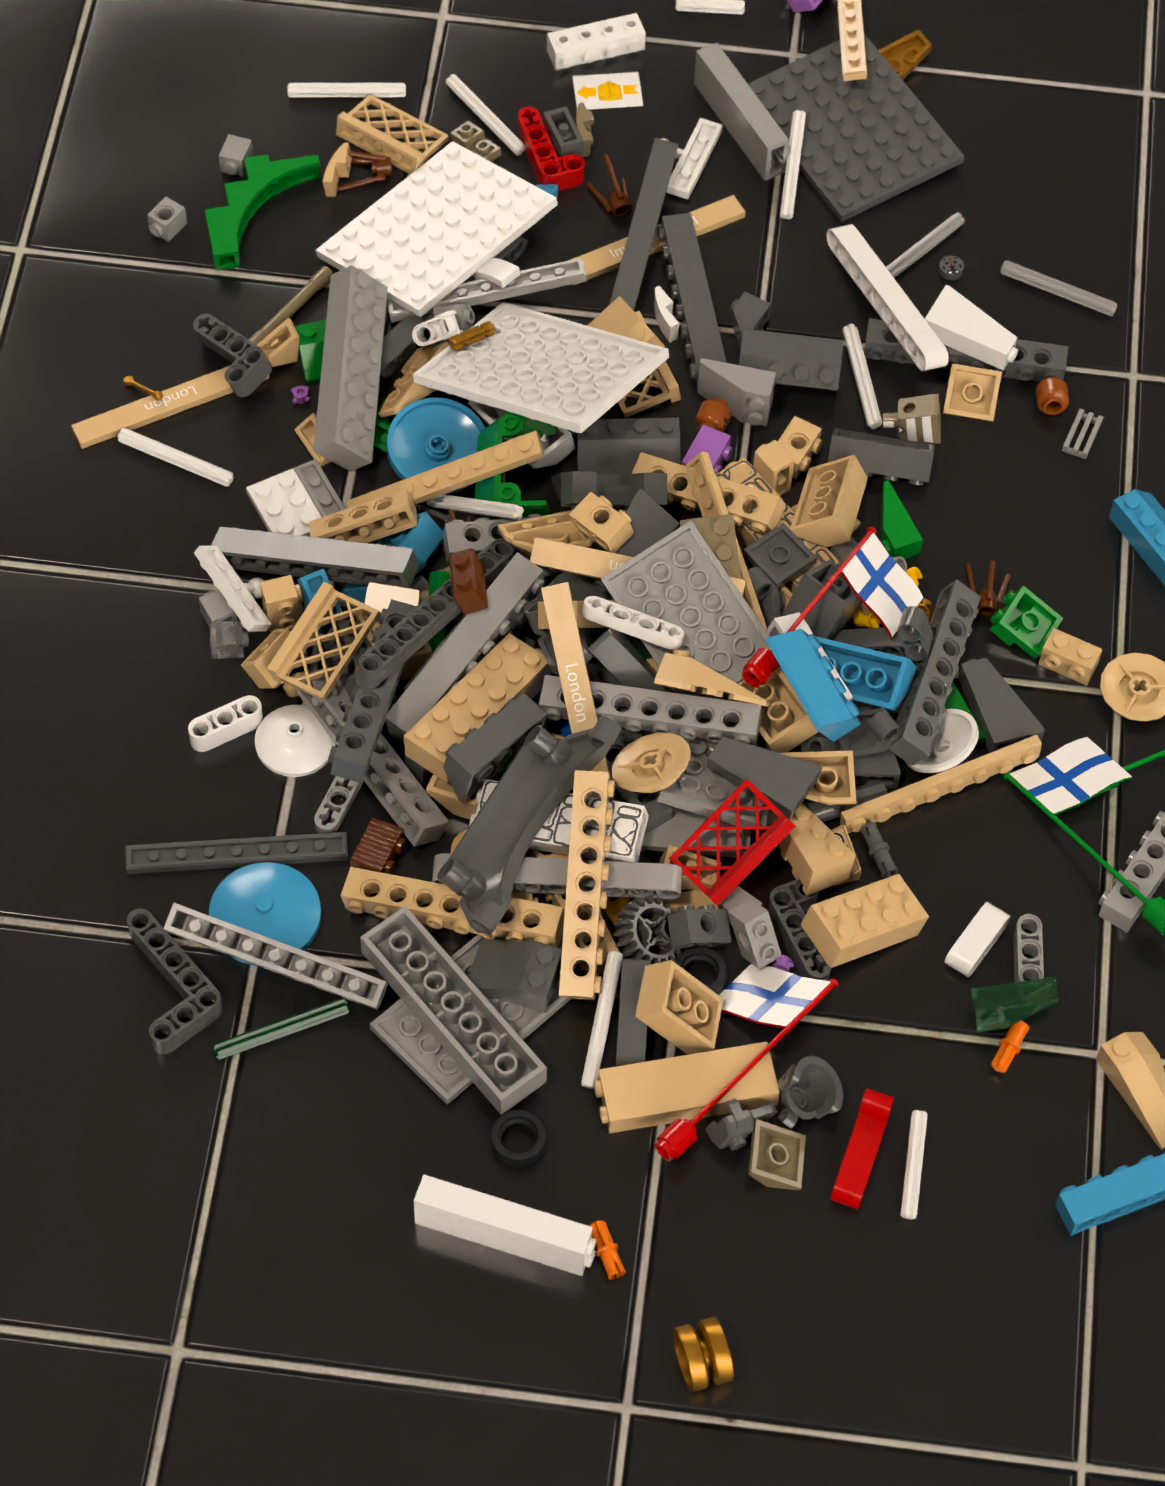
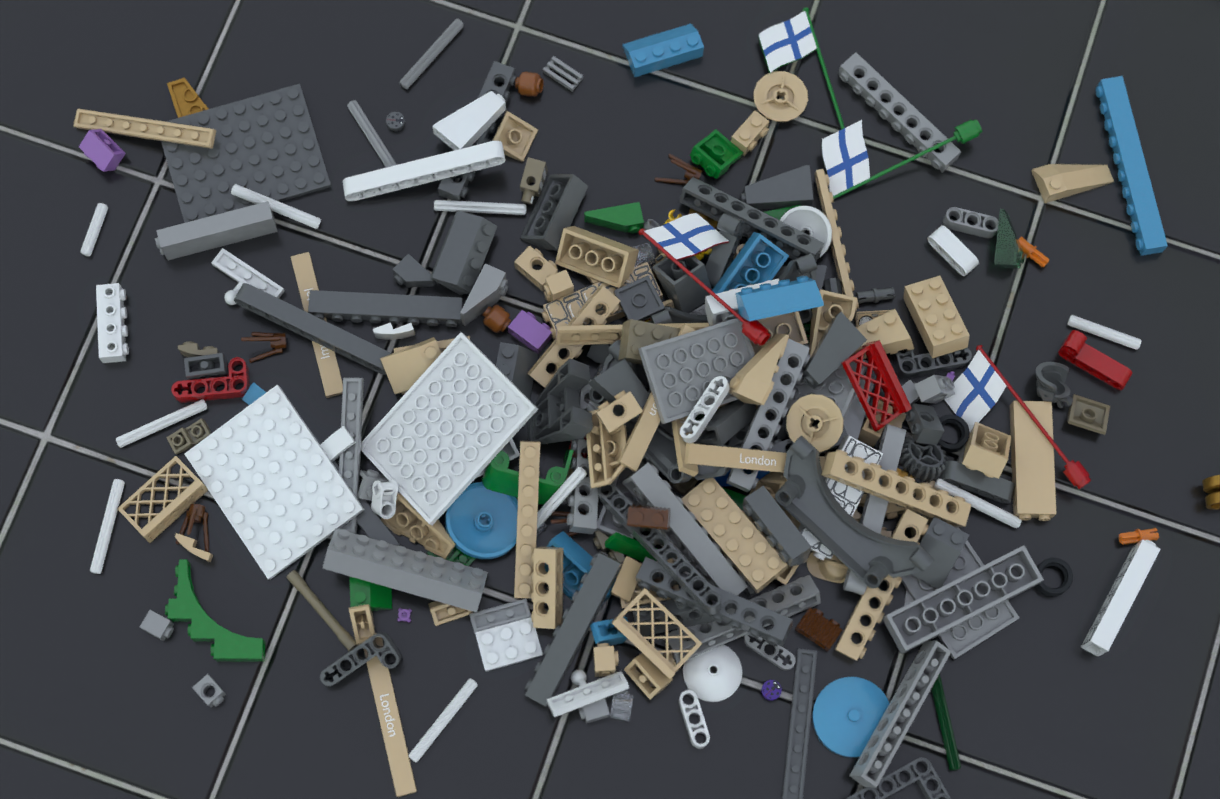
camera: 80 degrees left, 15 degrees up
(129, 381) = (361, 745): pearl gold hinge -> none
(283, 811) = (771, 690): none -> dark purple tile
(472, 336) = (399, 473): pearl gold axle -> none
(608, 90) = (158, 326): white sticker -> none
(738, 1125) = (1069, 434): dark grey piece -> none

